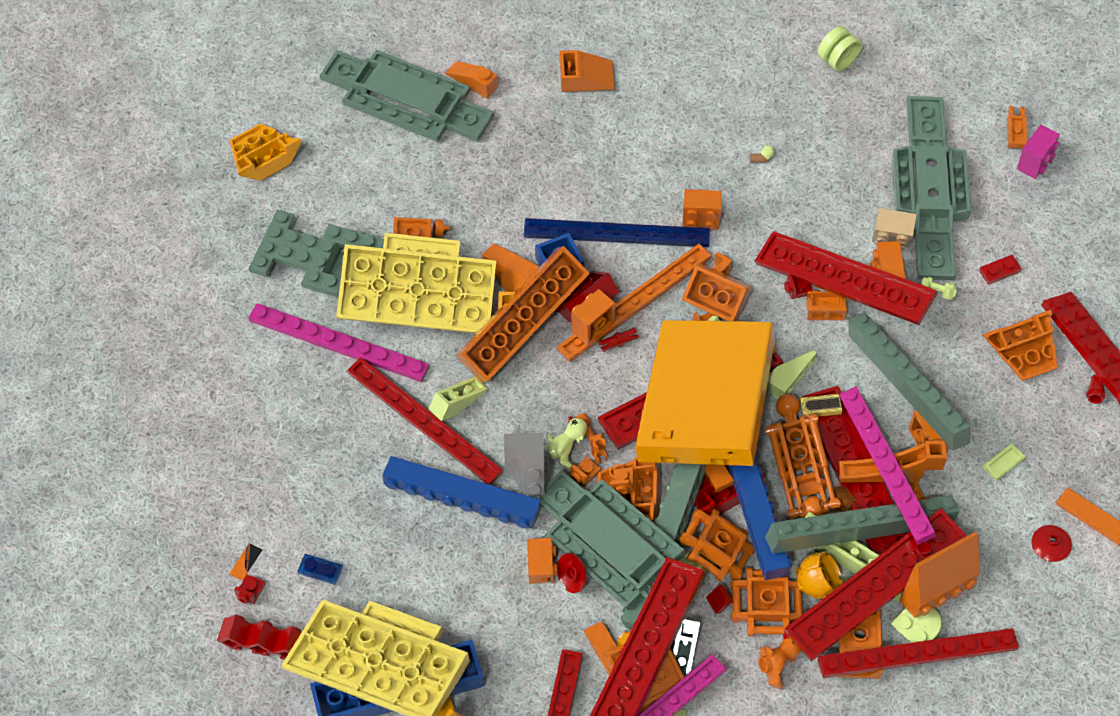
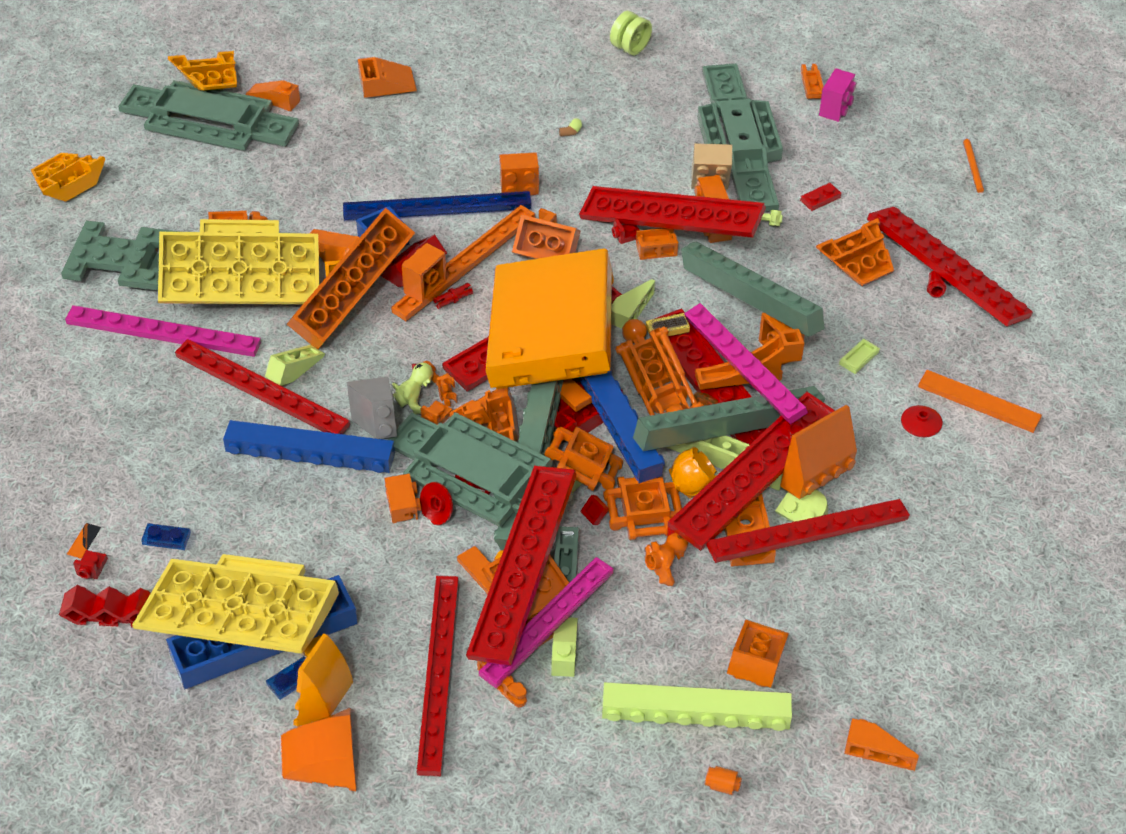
camera: 10 degrees left, 10 degrees down
(411, 47) = (208, 73): none -> light orange wedge

